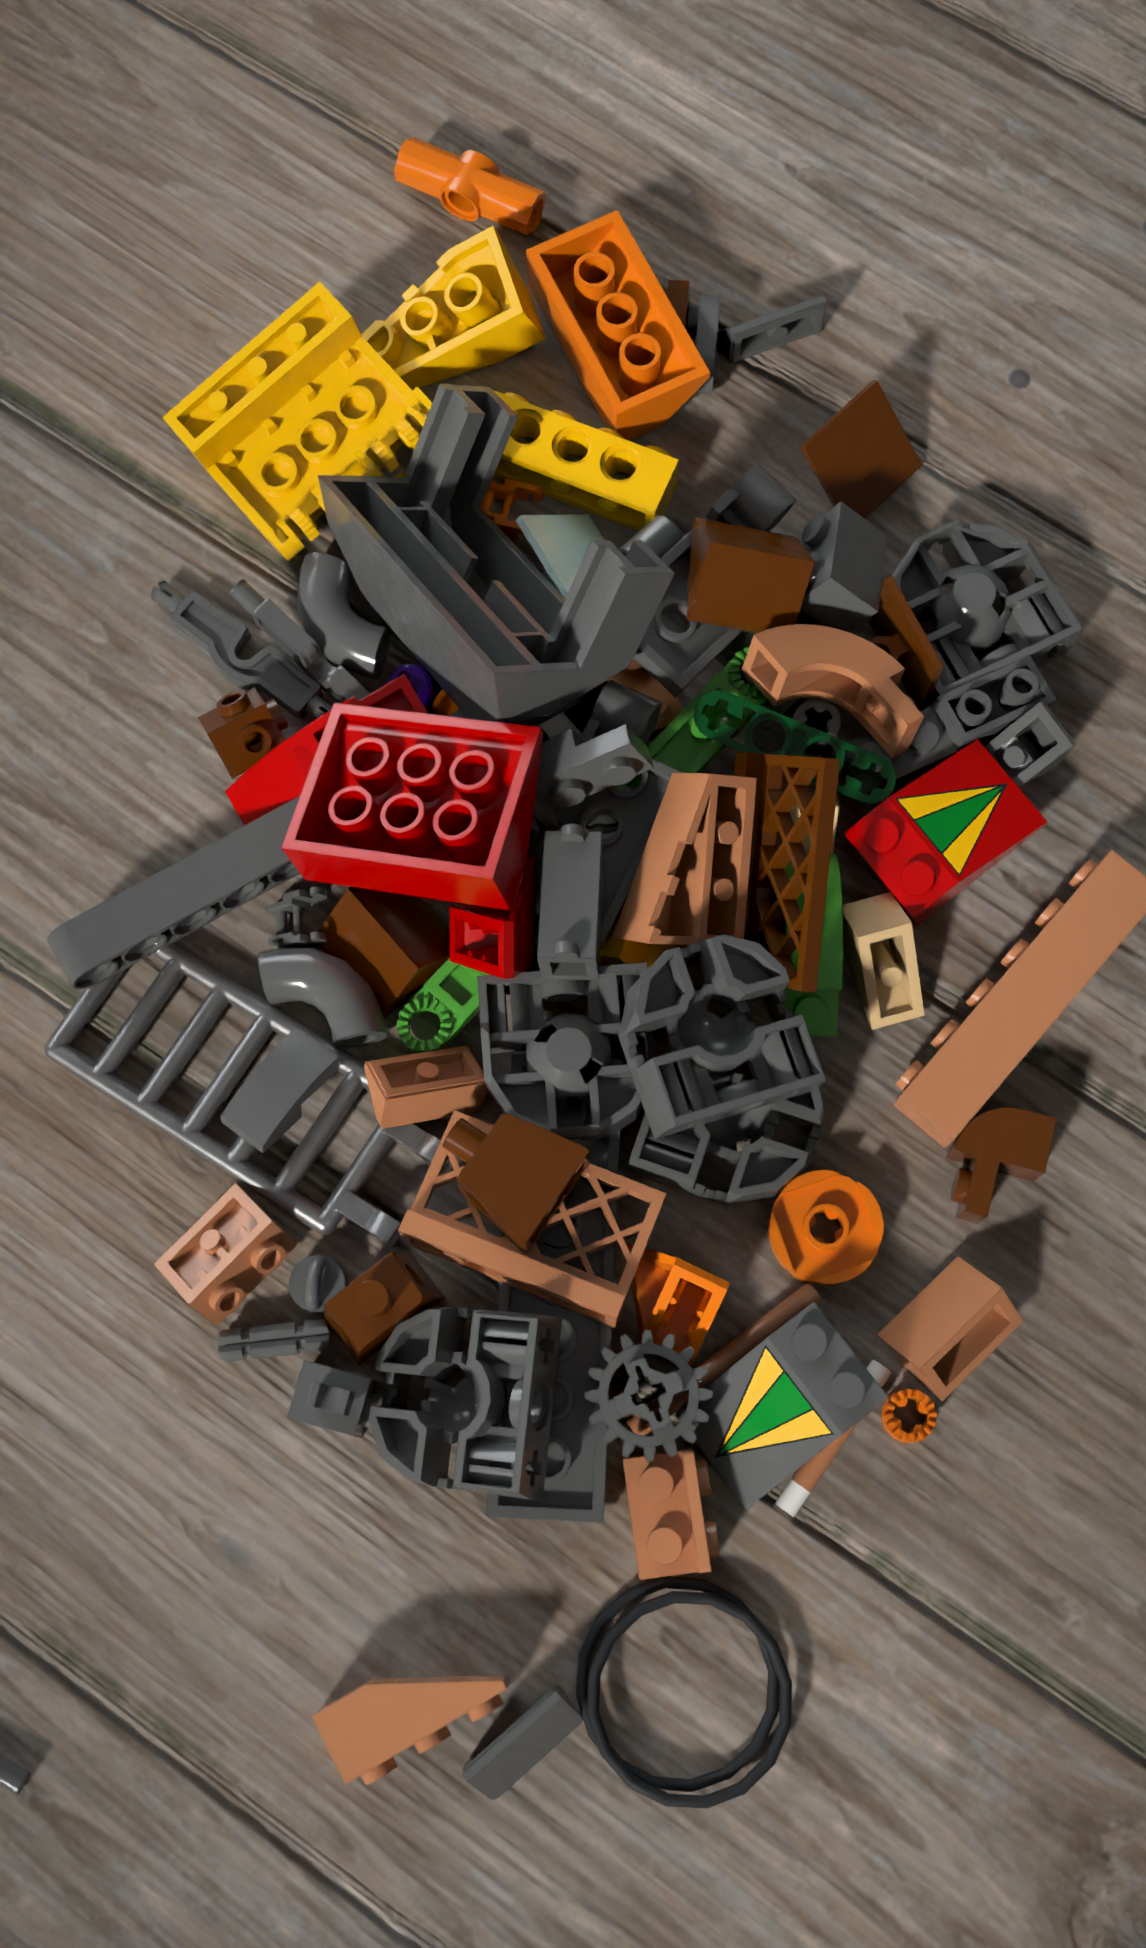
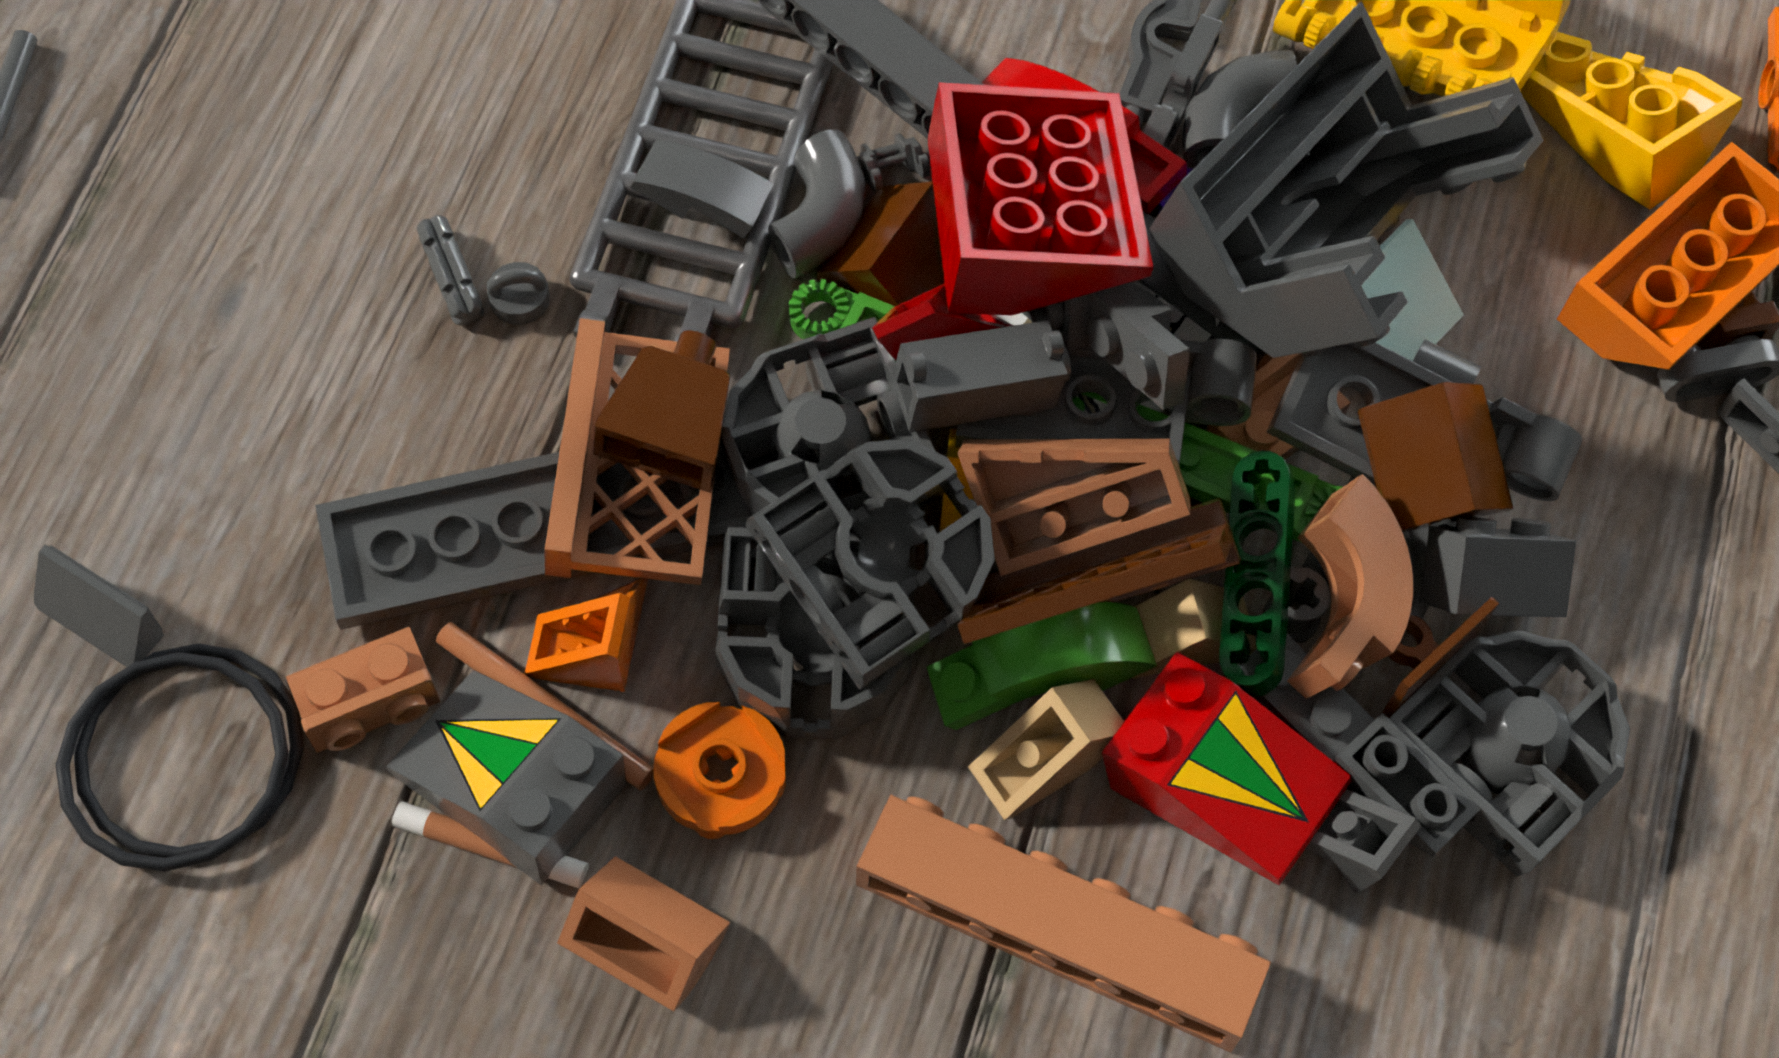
camera: 65 degrees right, 10 degrees down
(225, 1255) = (521, 200): nougat bracket -> none
(244, 729) = (1075, 46): reddish brown brick -> none
(334, 1399) = (401, 334): dark grey brick -> none
(379, 1301) = (499, 339): reddish brown torso -> none
(394, 1713) = (98, 477): nougat slope -> none
(425, 1086) = (747, 315): nougat slope -> none
(472, 1410) = (387, 448): dark grey connector -> none
(510, 492) = (1453, 225): orange piece -> none
(587, 481) = (1509, 357): yellow brick -> none
(672, 1383) = (460, 643): dark grey gear -> none
(862, 452) = (1655, 565): reddish brown piece -> none
(923, 1406) = (518, 903): orange bush -> none
(994, 1142) = (870, 920): reddish brown brick -> none

